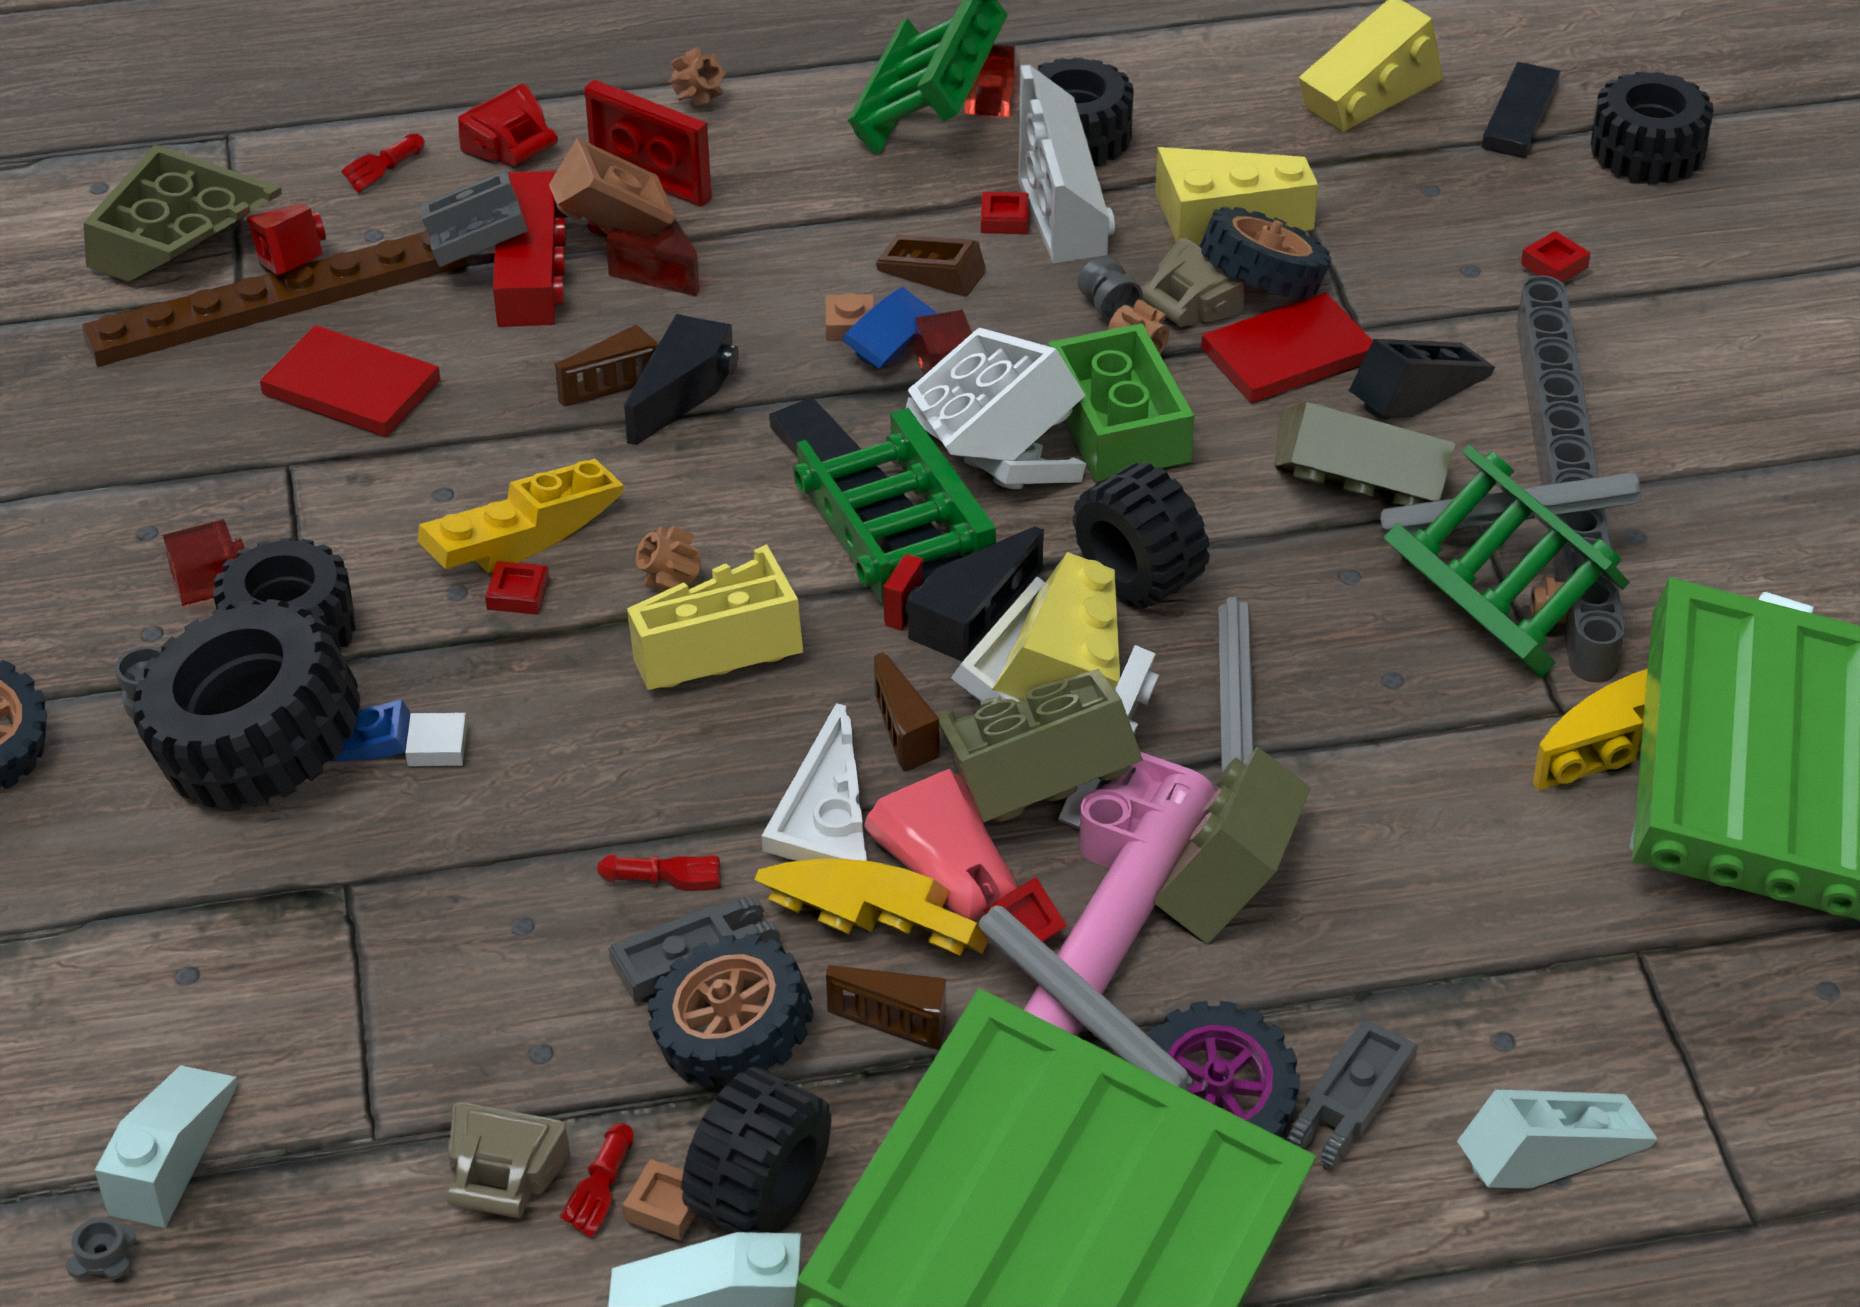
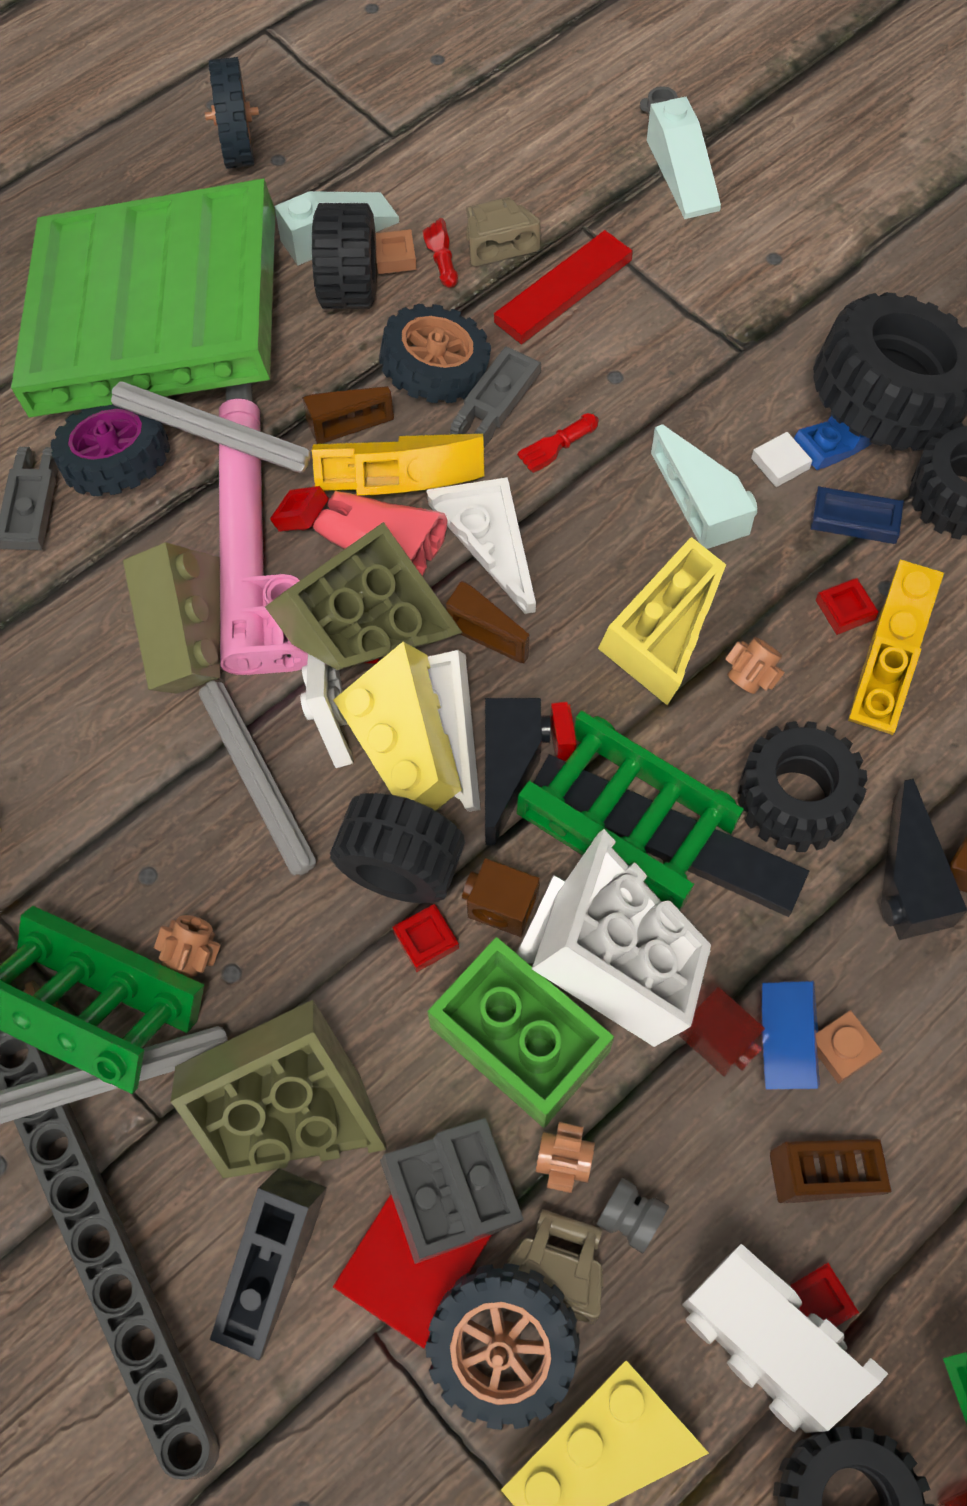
camera: 150 degrees right, 20 degrees up
(417, 657) = (857, 515): none -> dark blue tile
(483, 1053) = (562, 287): none -> red tile
(561, 720) = (704, 489): none -> light aqua slope
(722, 454) = (814, 755): none -> black tyre
(1051, 496) = (501, 897): none -> reddish brown brick
(1246, 350) = (450, 1190): none -> dark grey slope
(1383, 580) = (187, 945): none -> nougat gear

